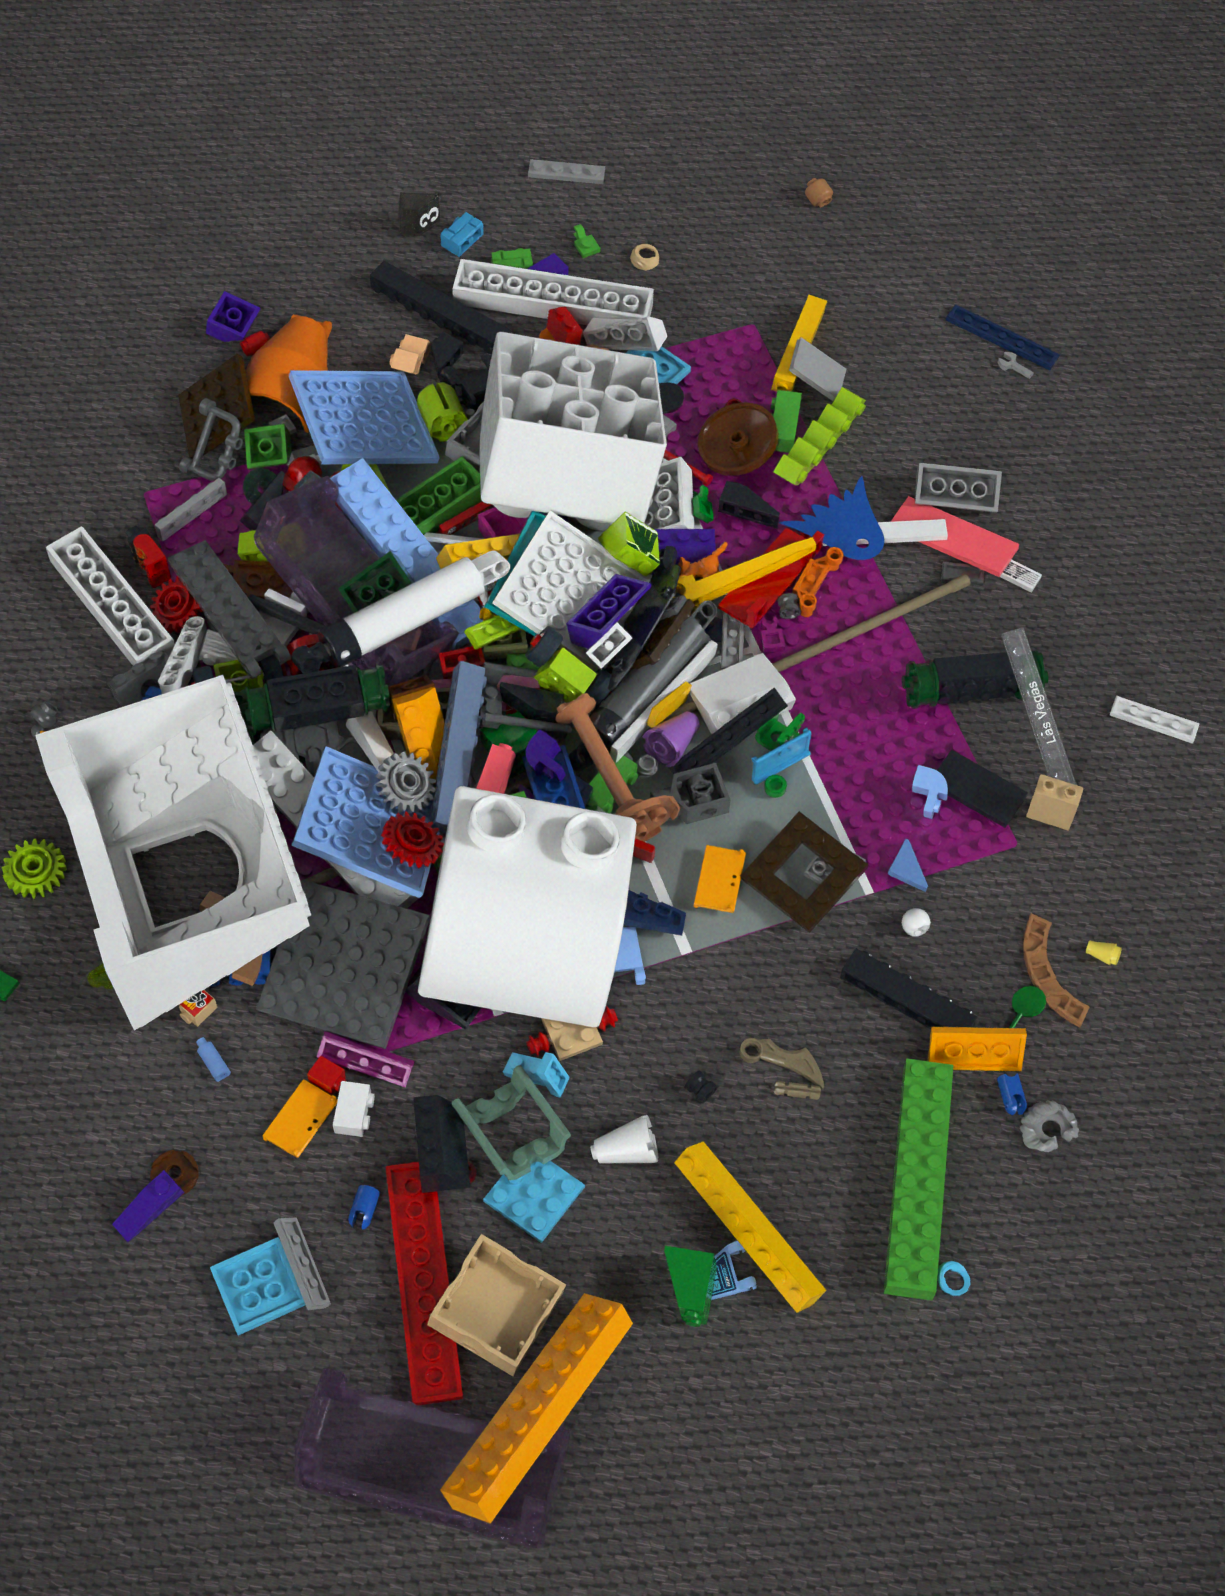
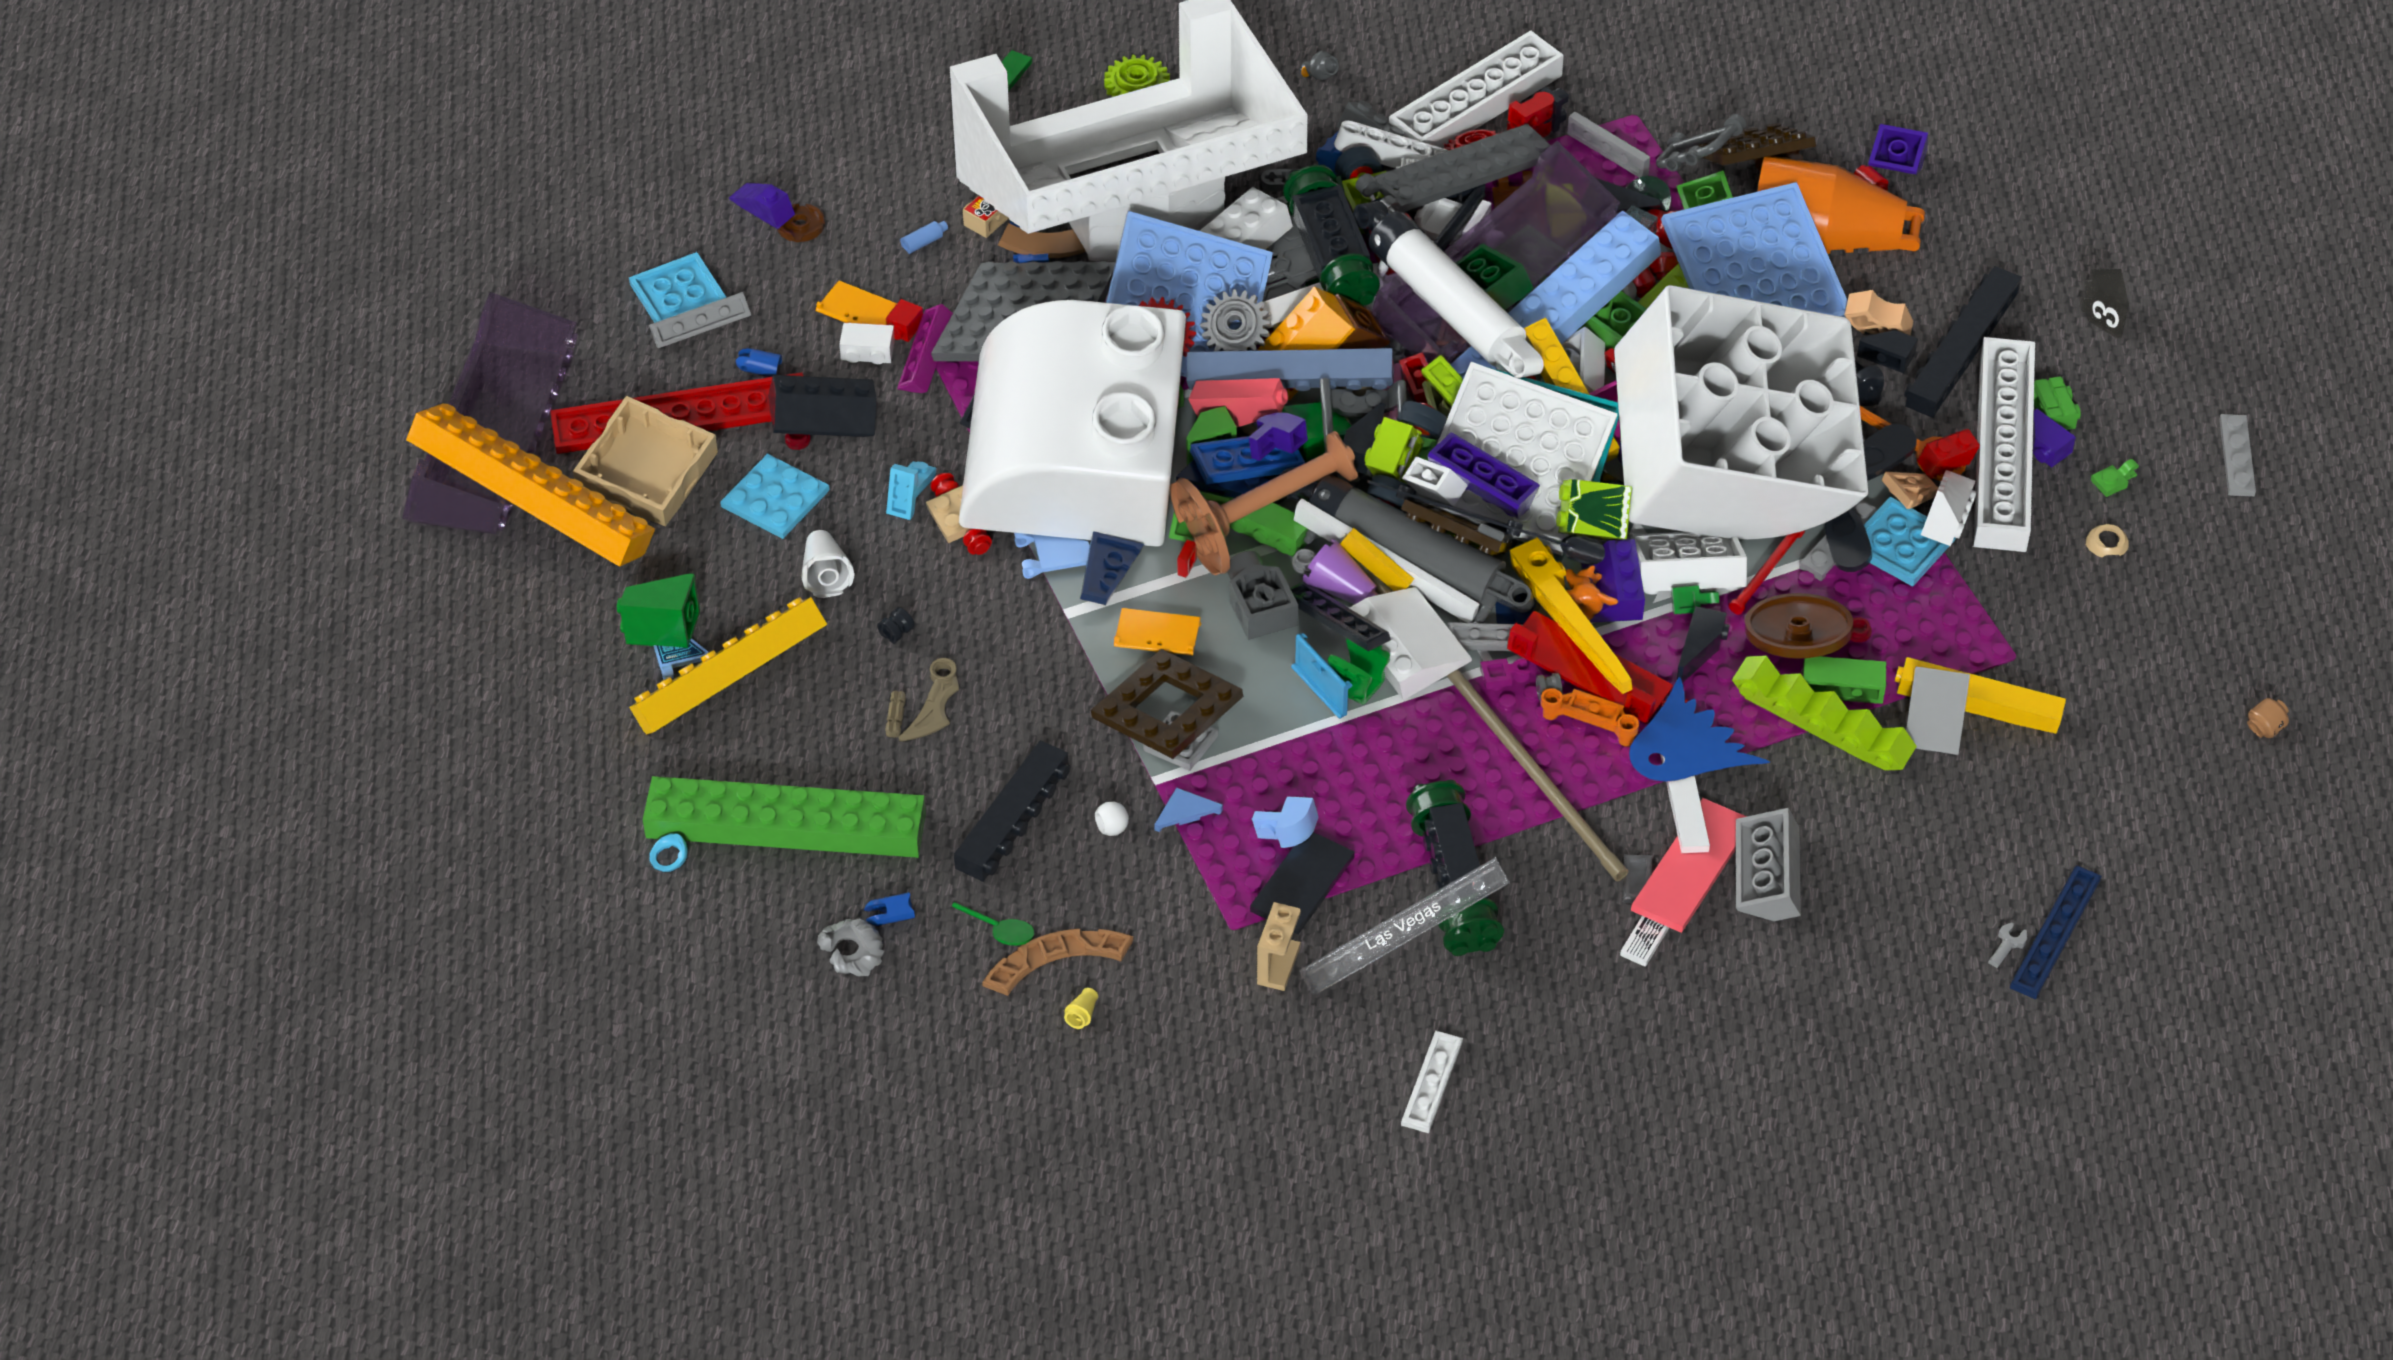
camera: 90 degrees right, 10 degrees down
(461, 234) = (2093, 354): dark azure brick -> none
(505, 1100) = (867, 450): sand green piece -> none
(775, 786) = (1289, 683): green tile -> none
(978, 1048) = (941, 866): light orange plate -> none

